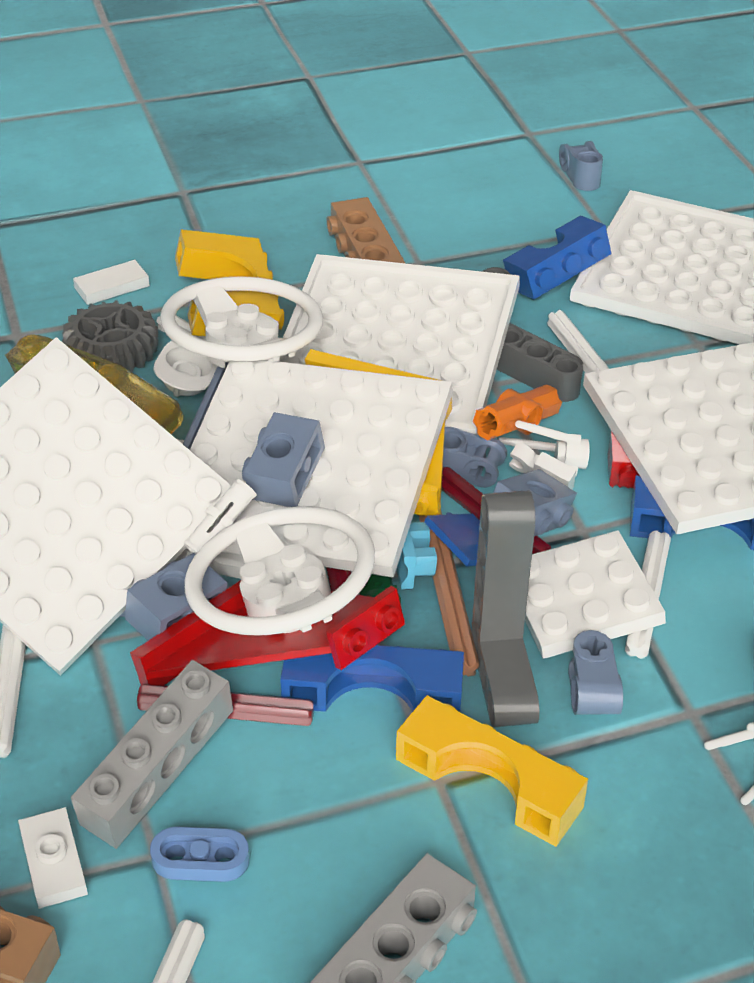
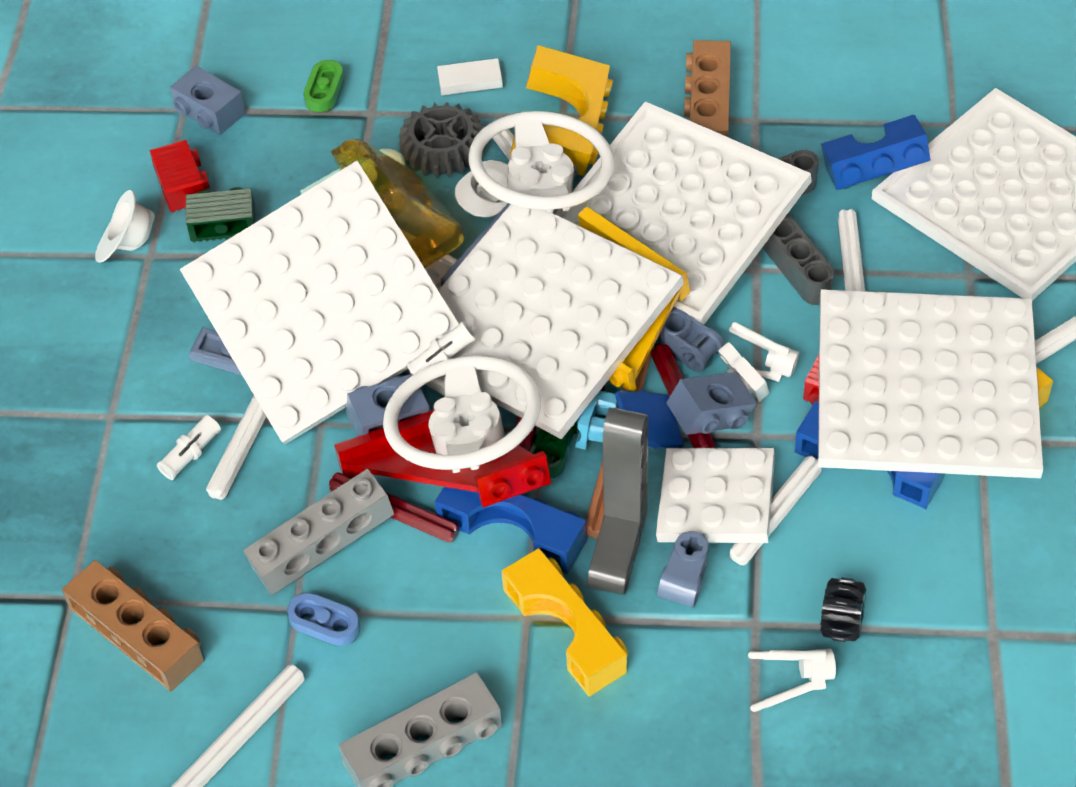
camera: 25 degrees right, 10 degrees up
(52, 858) = (223, 588): white plate -> none
(284, 459) = (509, 313): sand blue brick -> none
(512, 406) = (748, 309): orange piece -> none
(582, 165) = (968, 45): sand blue piece -> none

